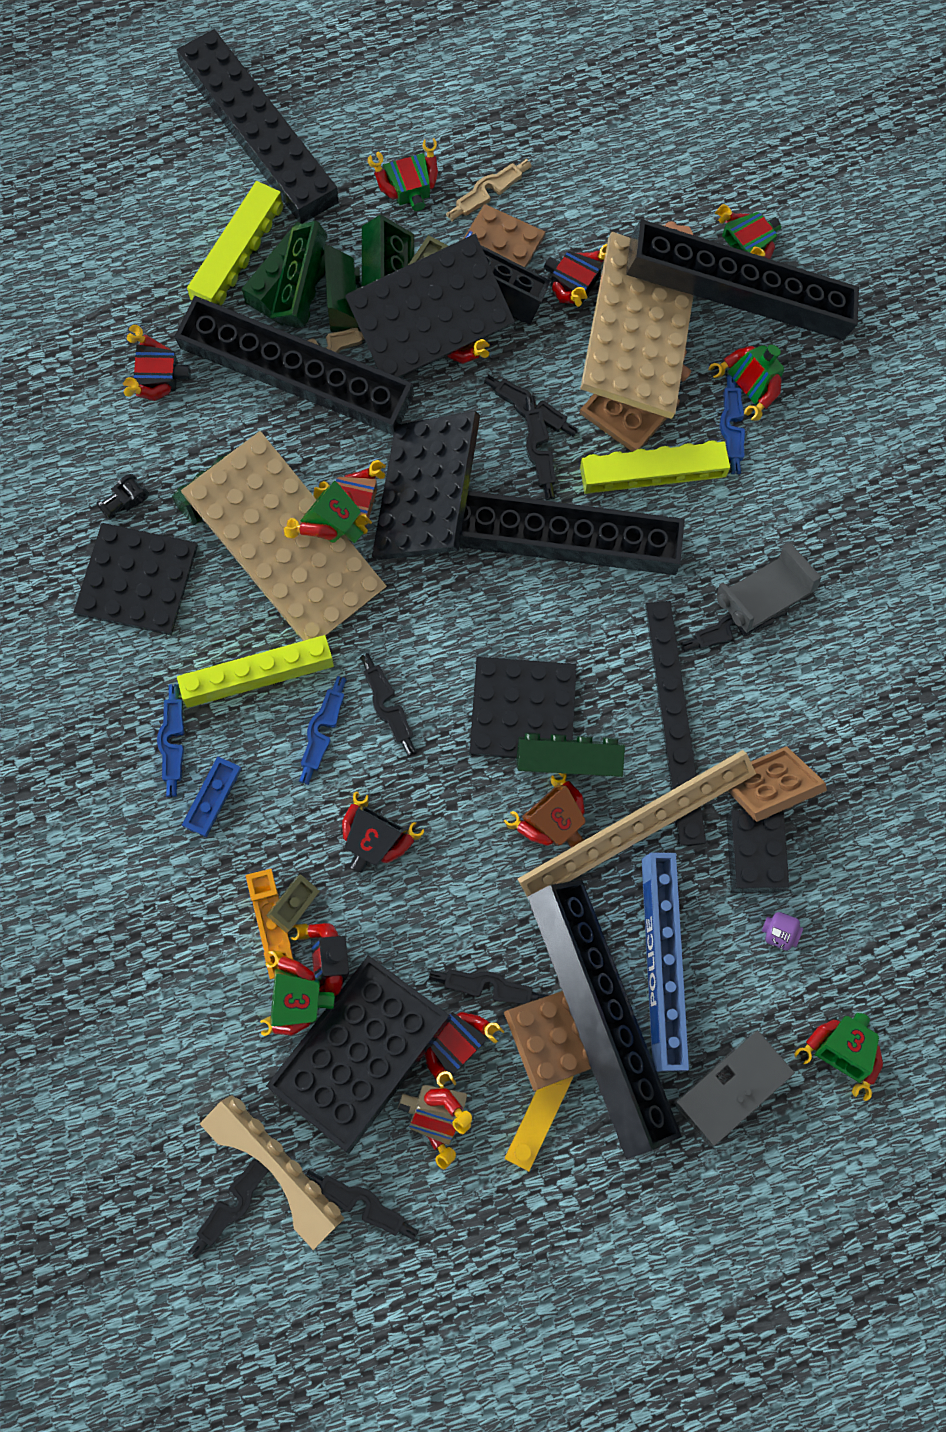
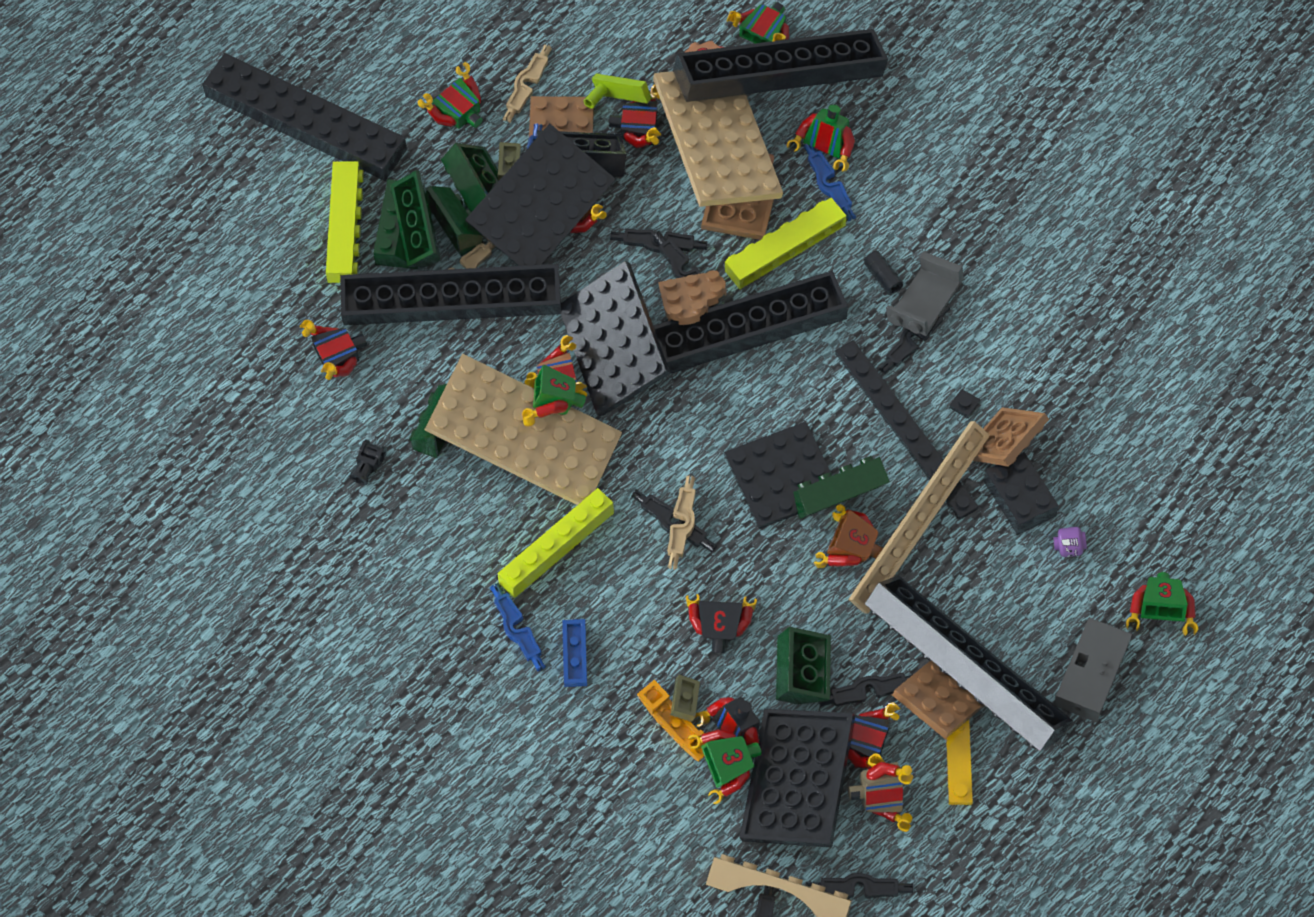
camera: 20 degrees left, 10 degrees down
(136, 579) = (415, 519): black plate -> none
(318, 742) = (633, 574): blue piece -> none
(384, 721) = (680, 532): none -> tan piece
(431, 930) = (803, 666): none -> dark green slope
(526, 477) = (691, 296): none -> medium nougat plate
(570, 232) = (617, 88): none -> lime piece
(664, 963) = (993, 604): medium blue brick -> none
(737, 544) = (883, 272): none -> black axle
(749, 723) = (964, 403): none -> black plate

